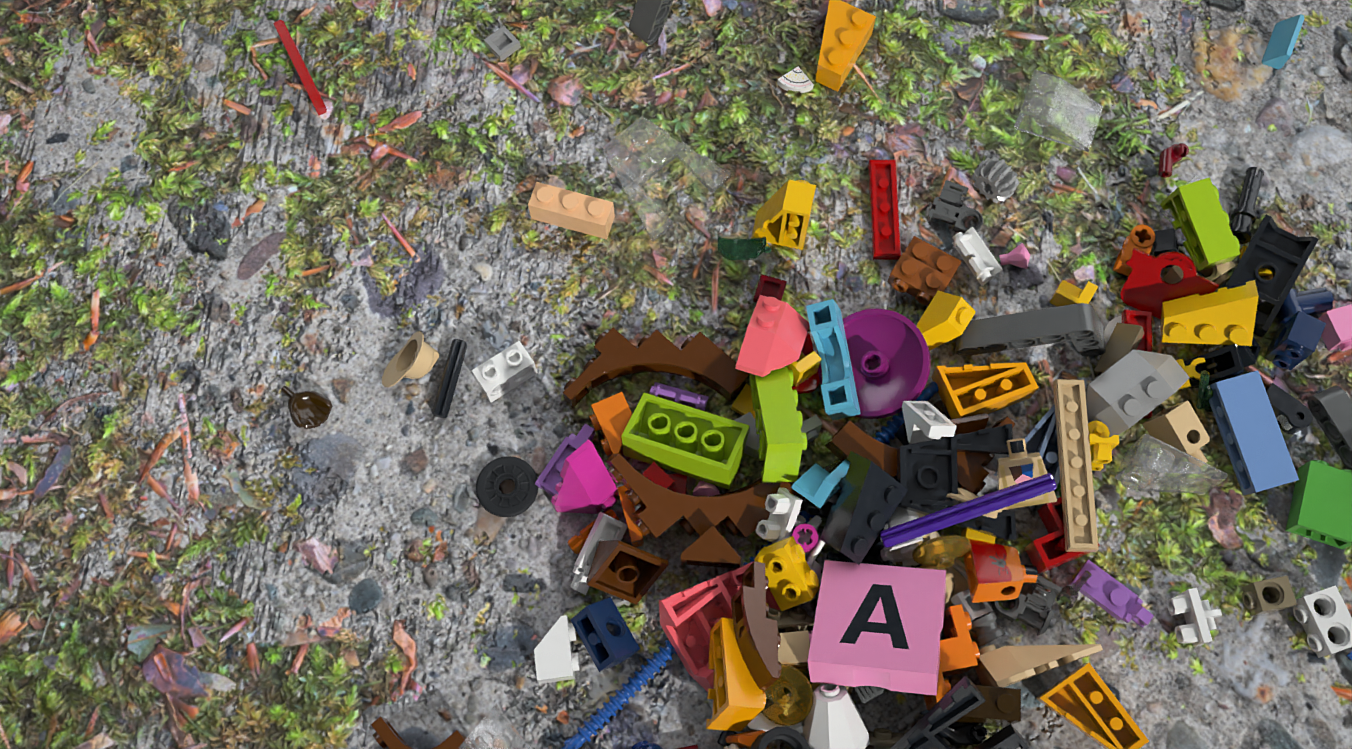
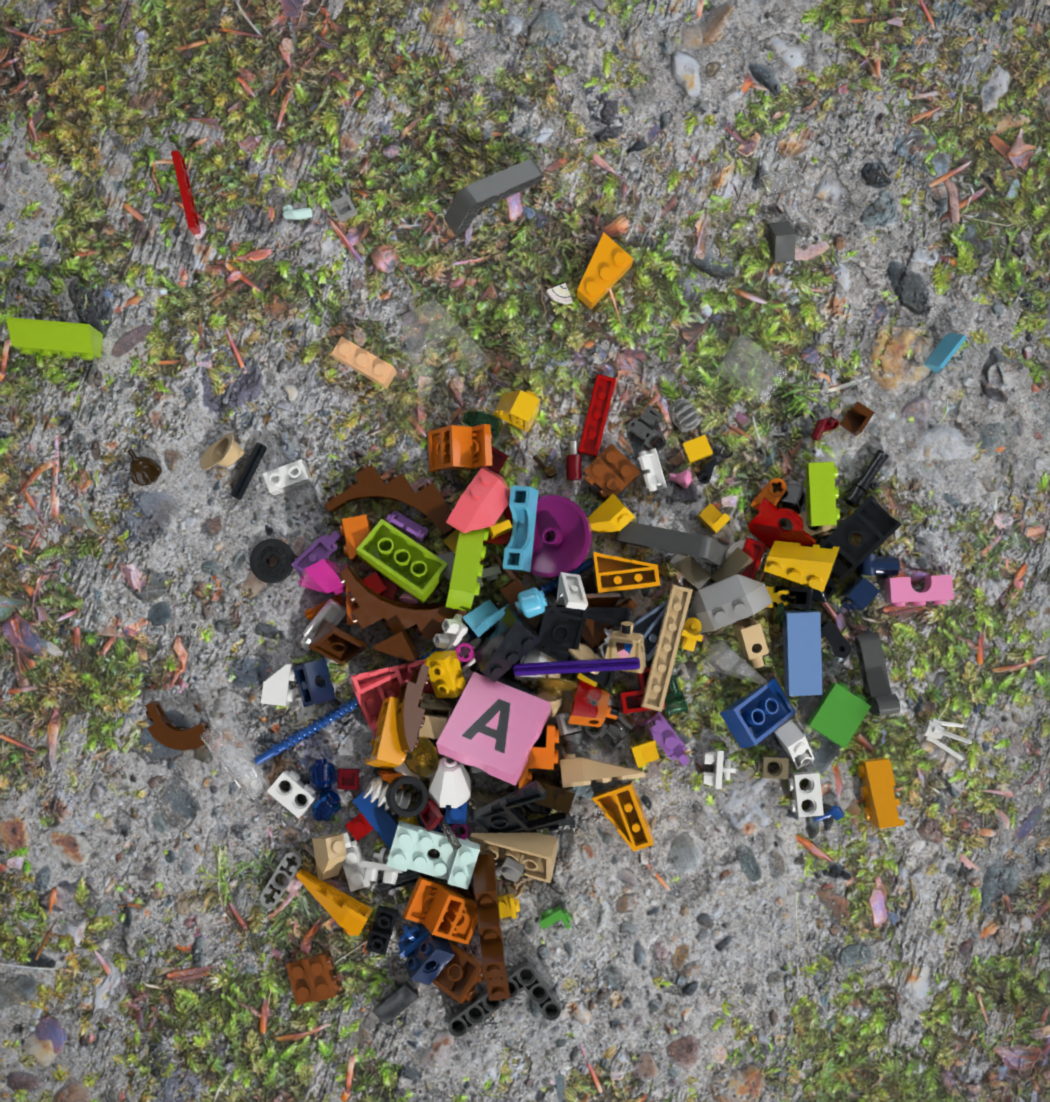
camera: 15 degrees right, 15 degrees up
(159, 267) = (55, 338): none -> lime slope
(440, 63) = (296, 214): none -> light aqua arm
(723, 282) = (460, 448): none -> orange bracket
(844, 288) = (549, 471): none -> dark brown hand
(873, 271) = (573, 463): none -> dark red piece
(879, 443) = (531, 602): none -> medium azure head
(1026, 216) = (697, 449): none -> yellow panel
(1043, 237) = (708, 465): none -> black arm
(1061, 365) = (689, 570): none -> dark tan slope
(1086, 621) = (644, 752): none -> yellow panel
(1107, 536) = (674, 698): none -> clear green connector
(1208, 137) = (856, 418): none -> reddish brown panel
(1220, 530) = (757, 714): none -> blue slope
(1285, 556) = (794, 744): none -> white slope

